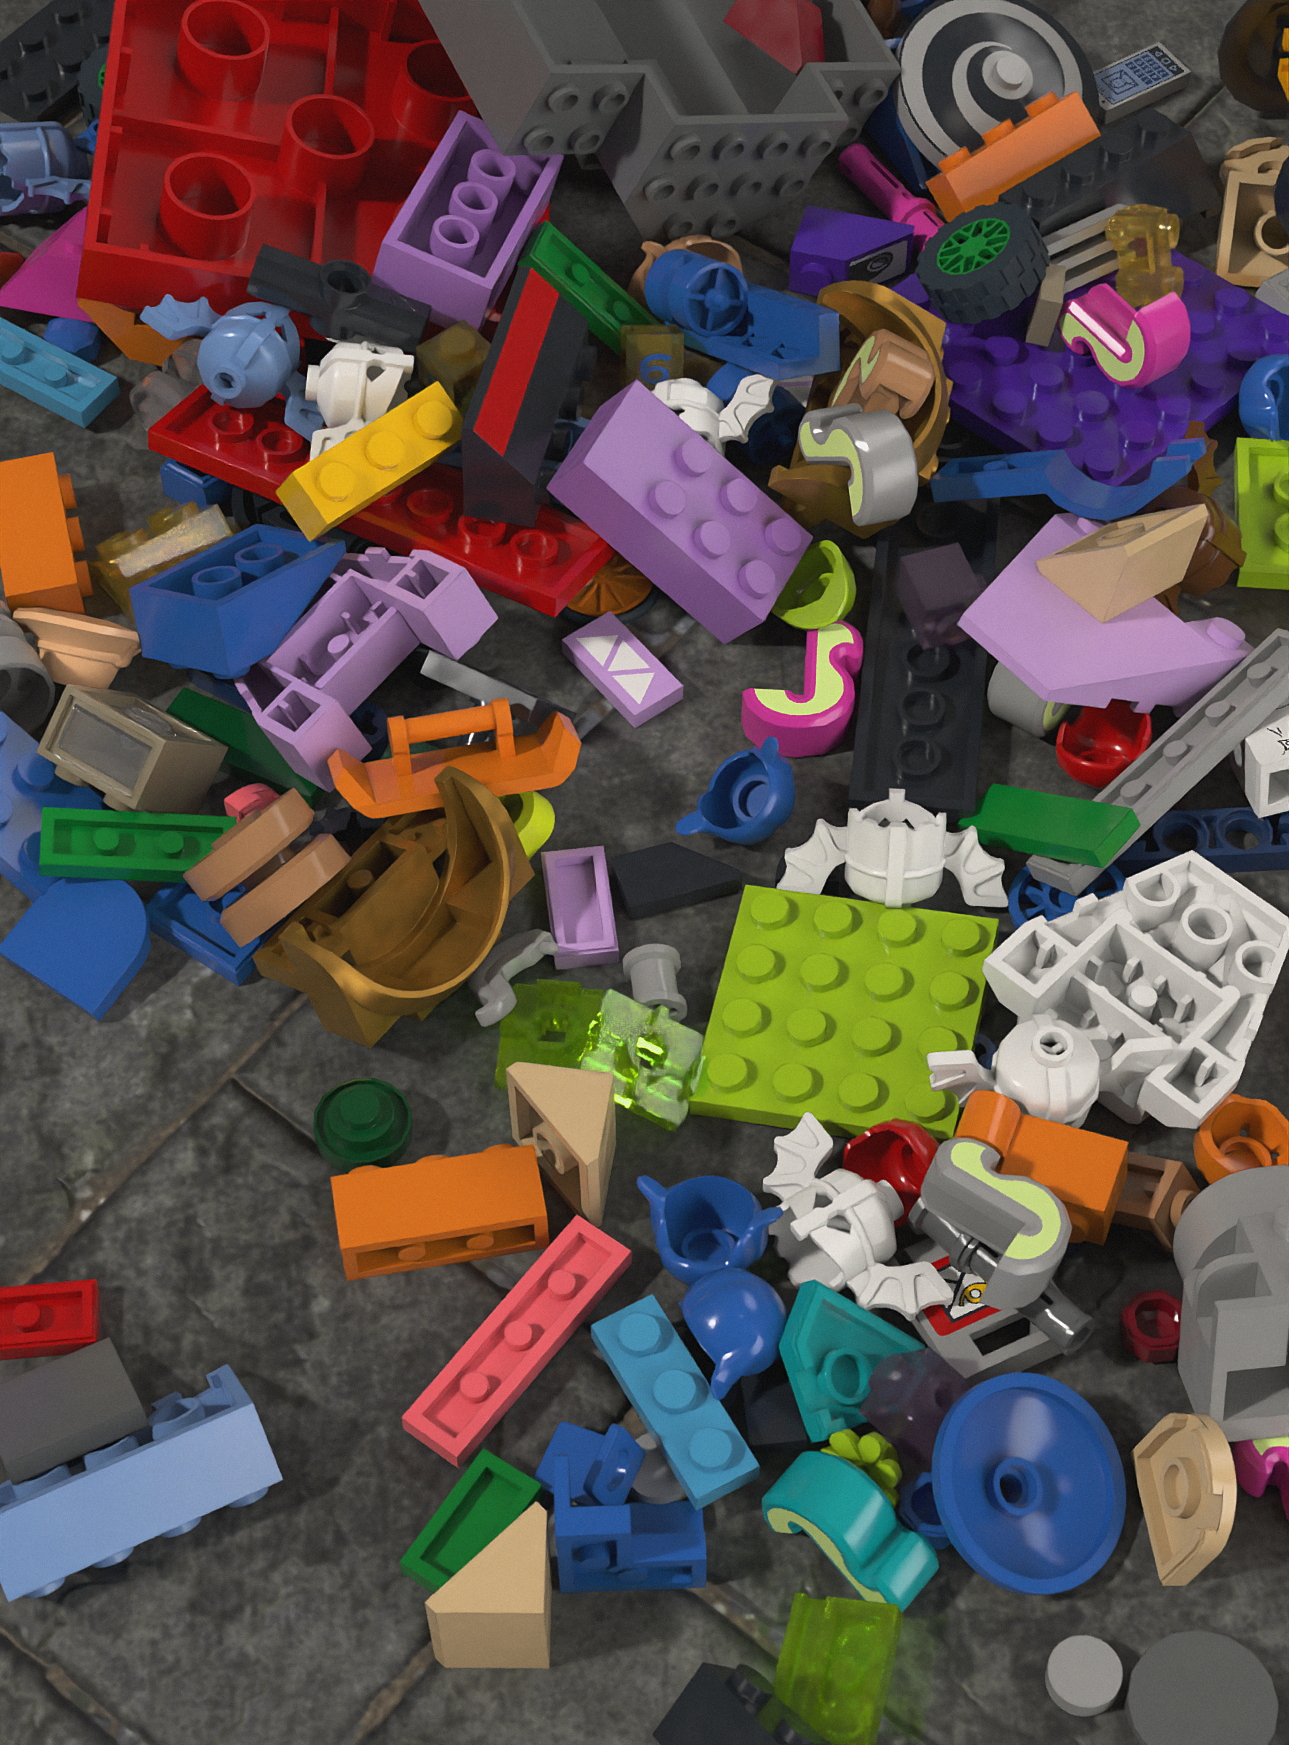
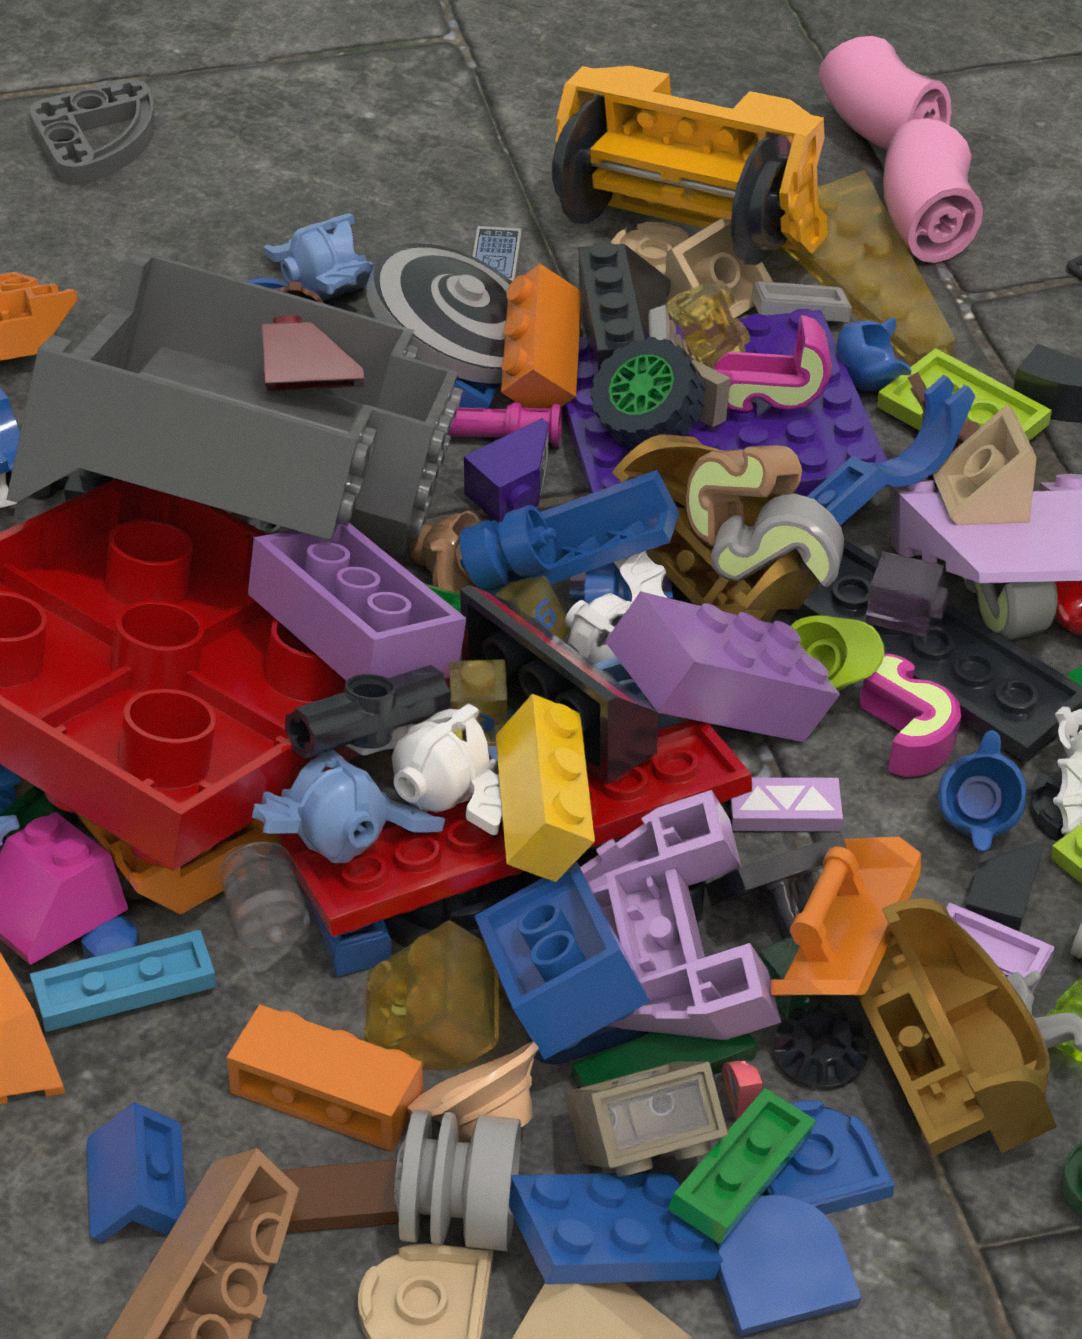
camera: 55 degrees left, 10 degrees down
(266, 866) = (864, 1080): medium nougat wheel -> none

